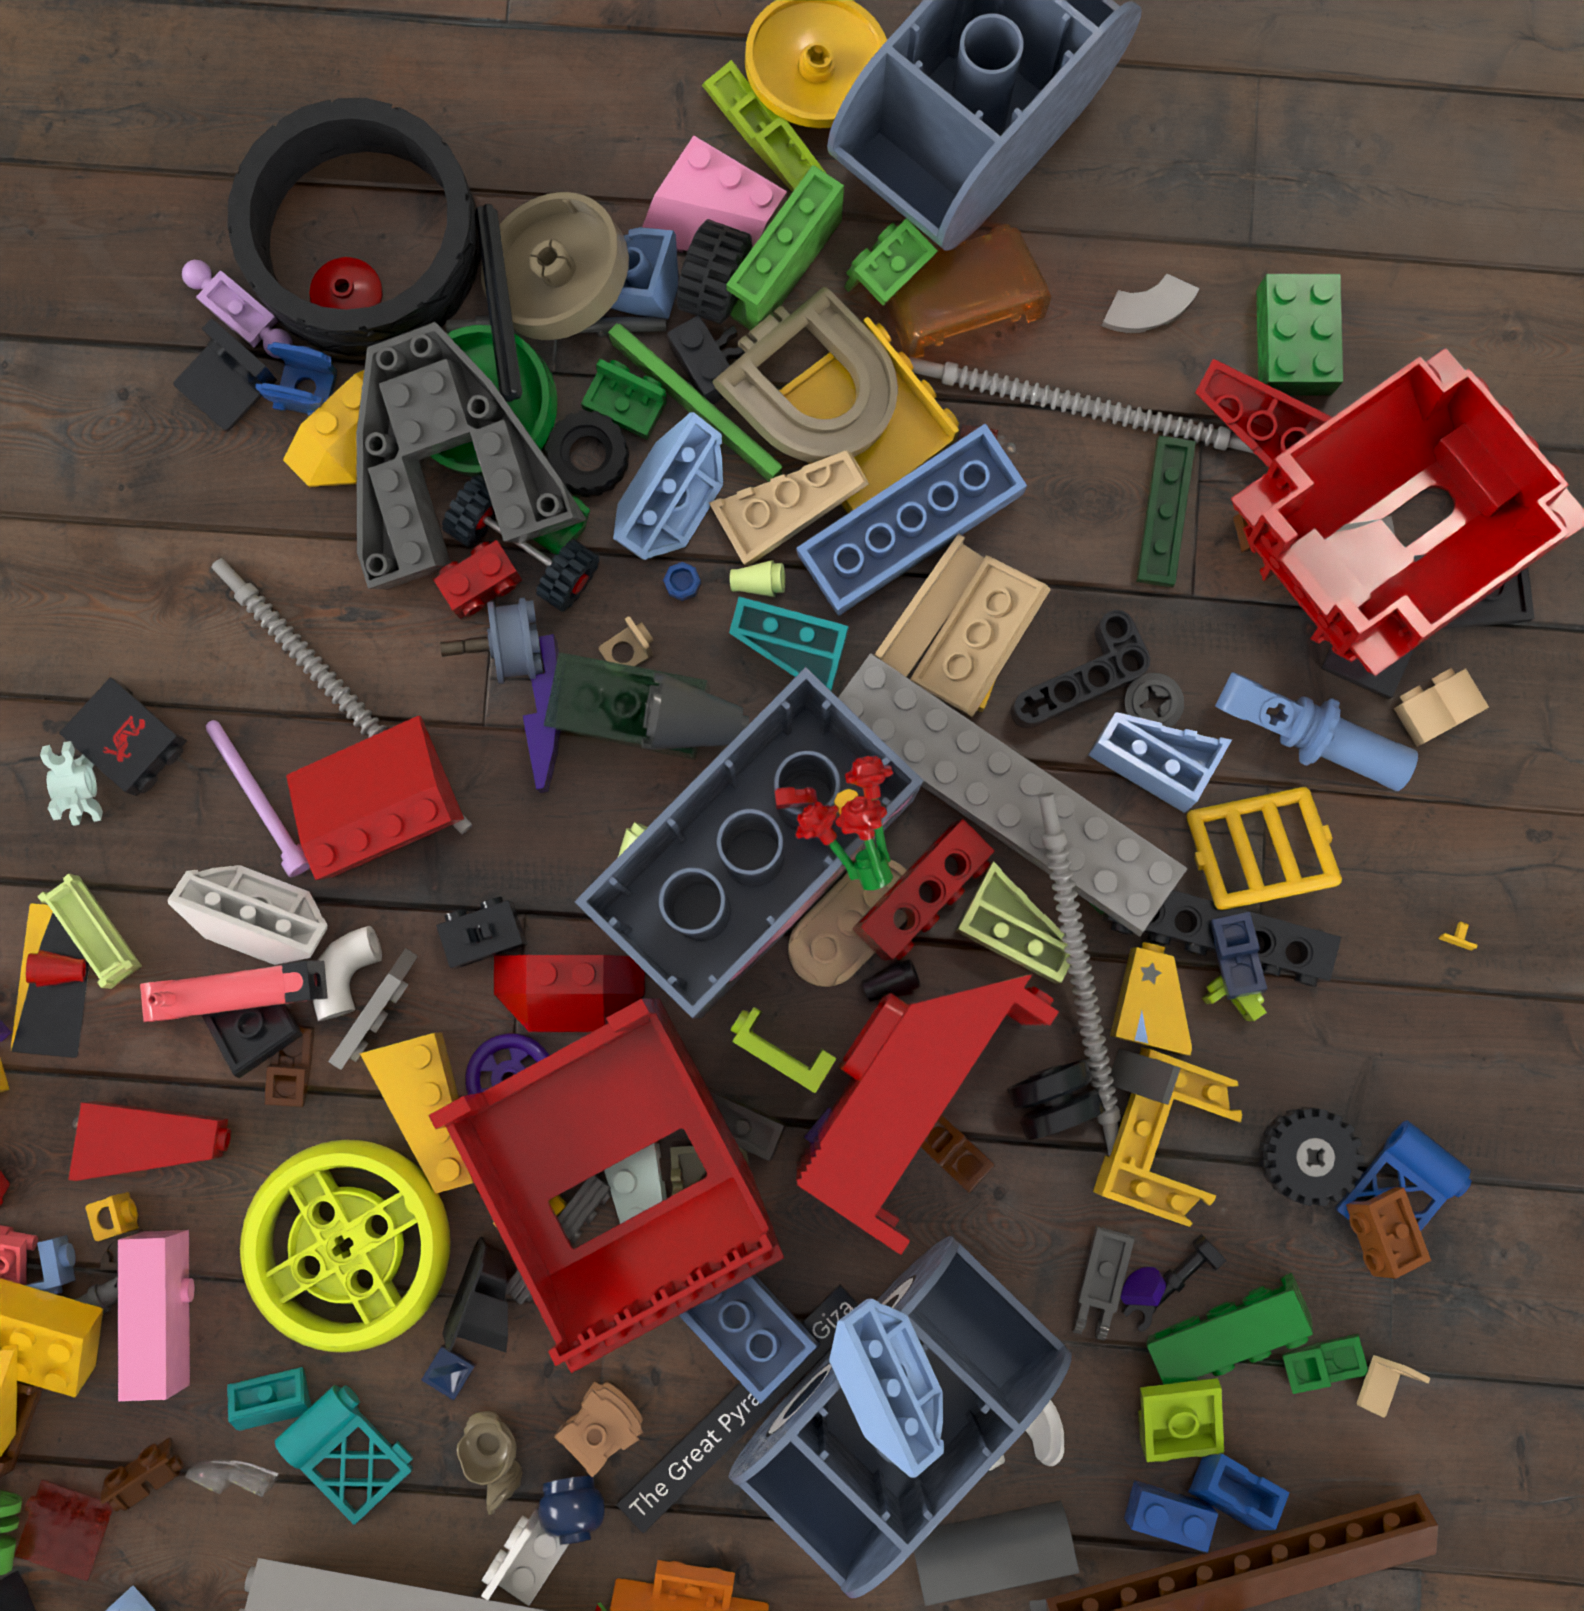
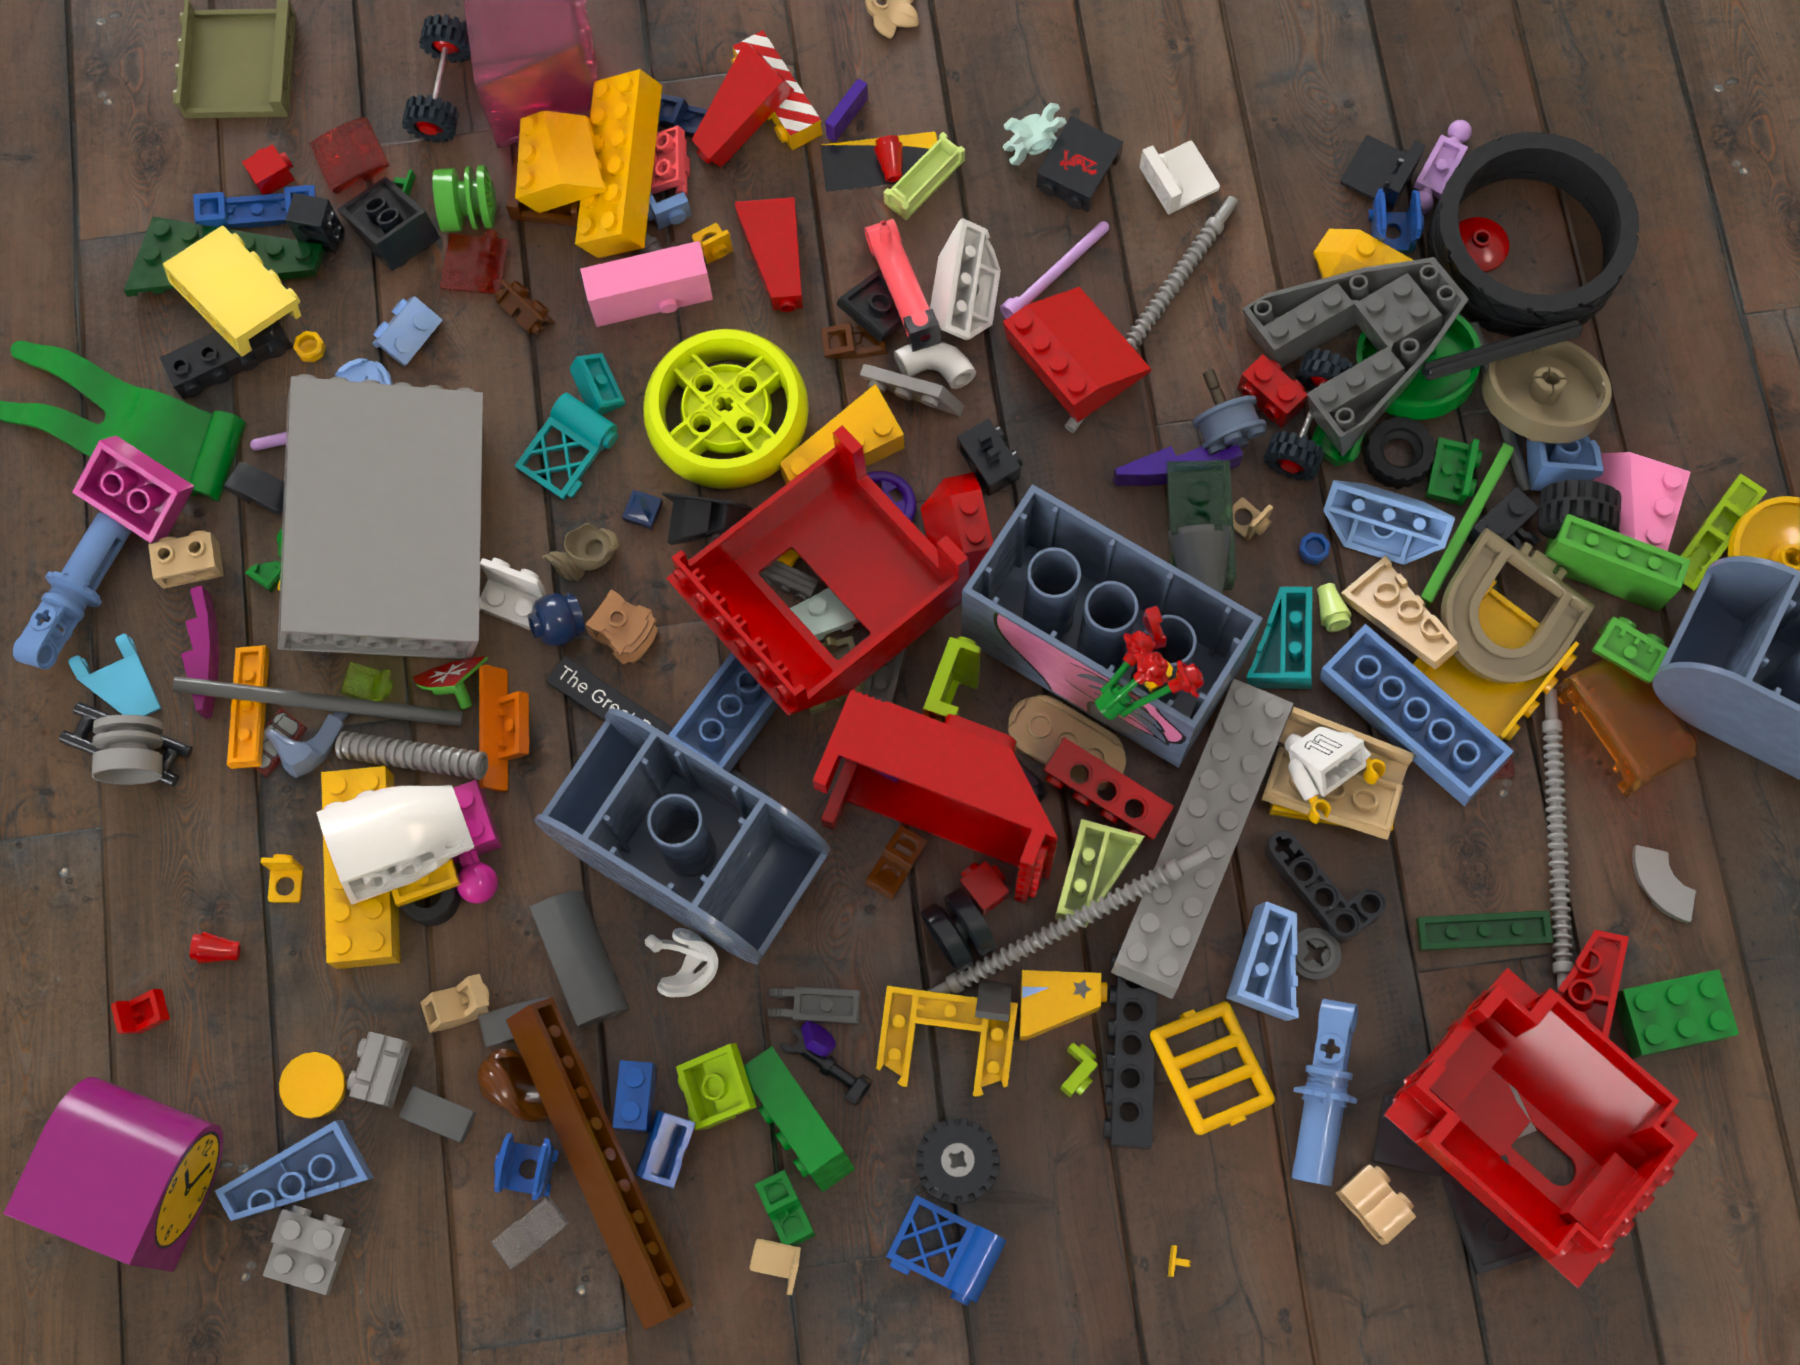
camera: 80 degrees right, 10 degrees down
(169, 620) = (1178, 176): none -> white bracket
(220, 1474) = (535, 365): clear slope -> none
(889, 1385) = (713, 792): light blue wedge -> none
(949, 635) = (1326, 761): none -> white torso
(1005, 1057) = (984, 886): none -> red brick
(1238, 955) = (1114, 1058): dark blue slope -> none
(1388, 1234) = (906, 1239): dark orange bracket -> none

